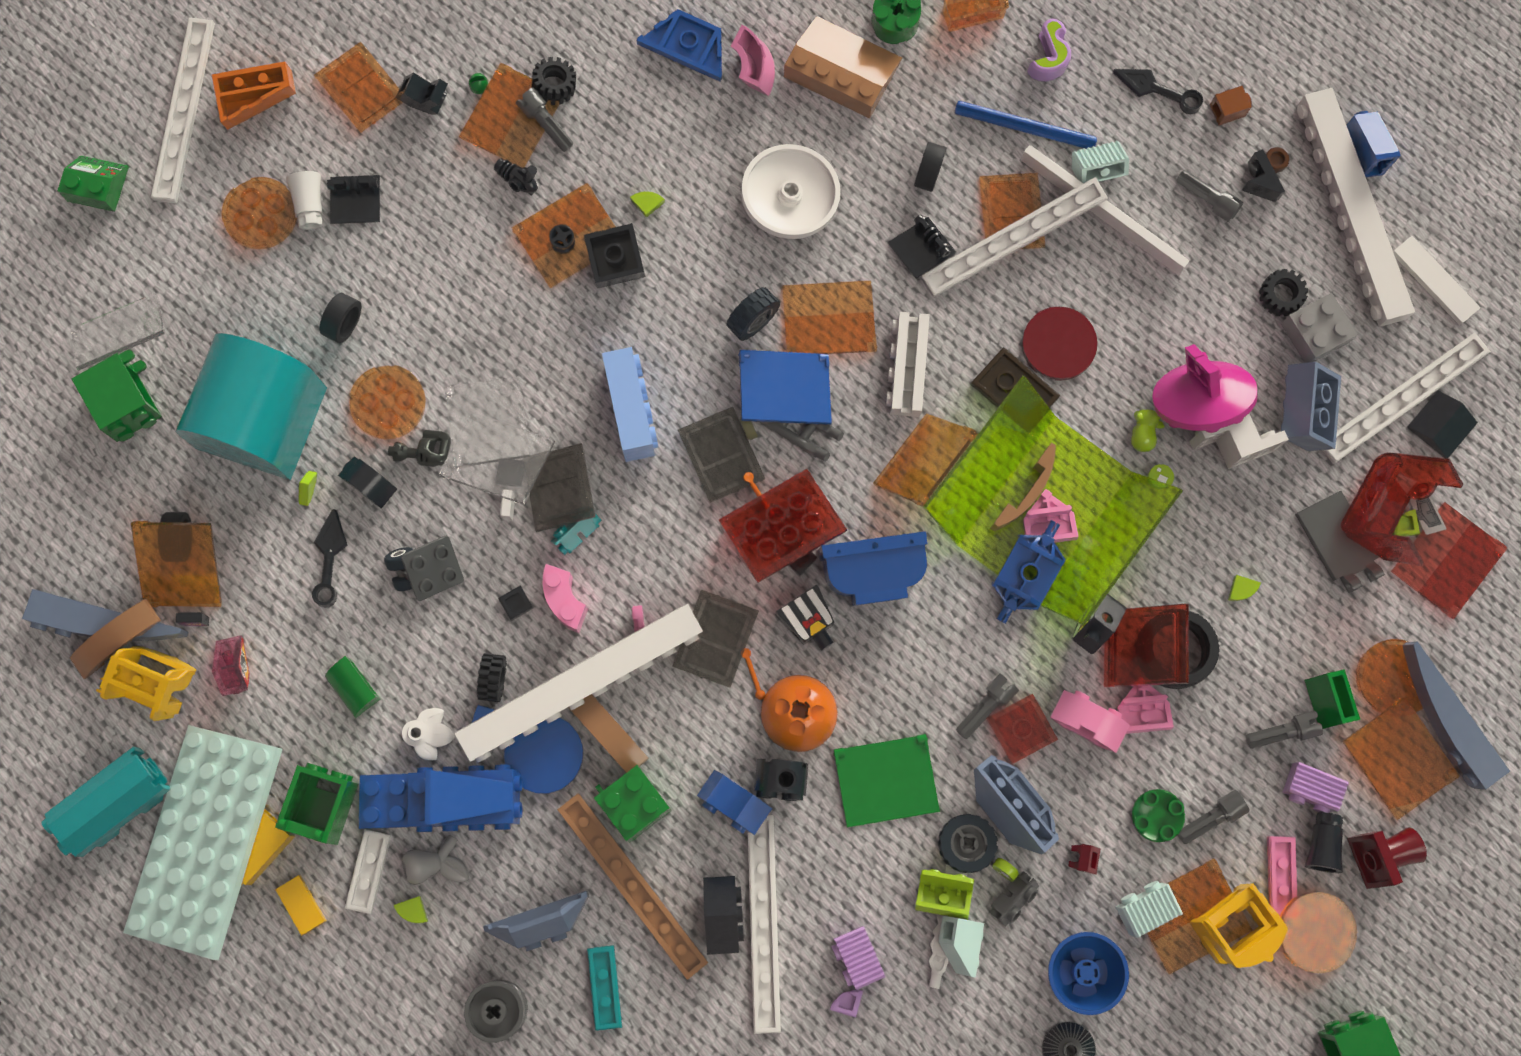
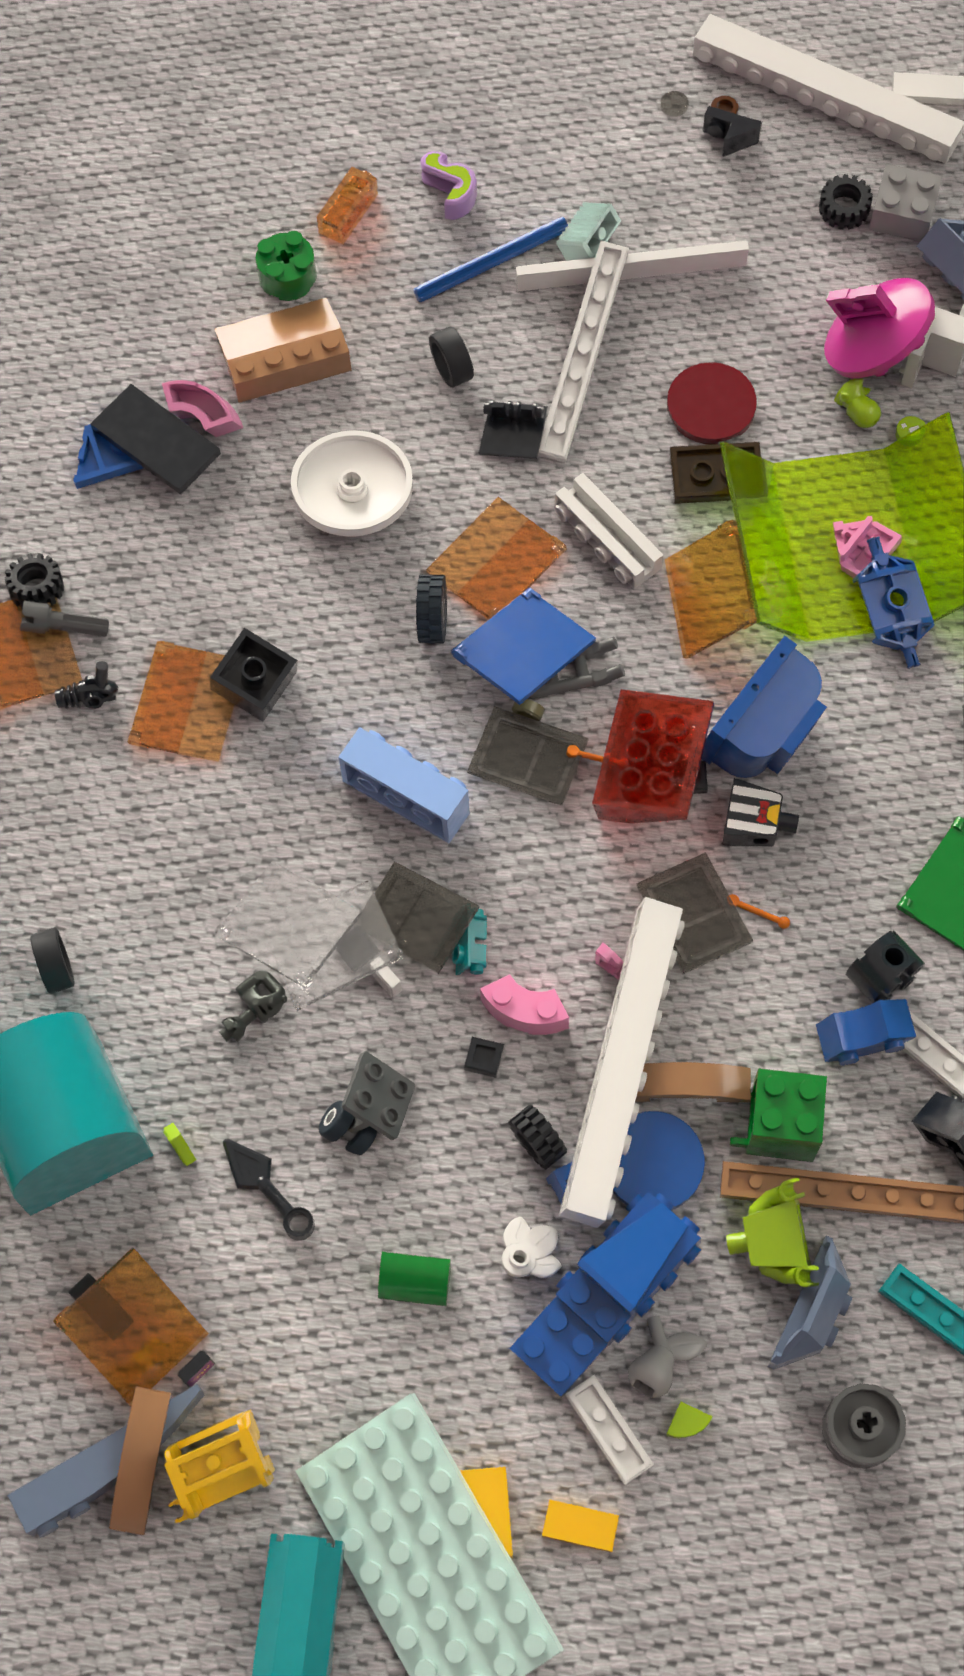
camera: 40 degrees left, 10 degrees down
(231, 666) = (279, 1373): clear pink slope -> none
(315, 811) = (509, 1420): green container -> none
(367, 481) = (232, 1078): black brick -> none
(387, 402) = (173, 998): clear orange tile -> none
(558, 865) = (776, 1237): none -> lime torso
(561, 233) = (187, 698): black wheel -> none
(647, 202) = (229, 609): lime tile -> none
(707, 55) = (155, 438): none -> black tile
(792, 728) = (828, 919): orange piece -> none
(1008, 200) = (545, 331): clear orange piece -> none
(1044, 467) = (813, 506): medium nougat slope -> none
(1143, 83) = (552, 144): black piece -> none
(1223, 205) = (724, 177): dark grey piece -> none
(1231, 105) = (642, 98): dark orange brick -> none
(1249, 126) = (674, 103): none -> clear smoke piece
(1372, 143) = (790, 25): blue slope -> none

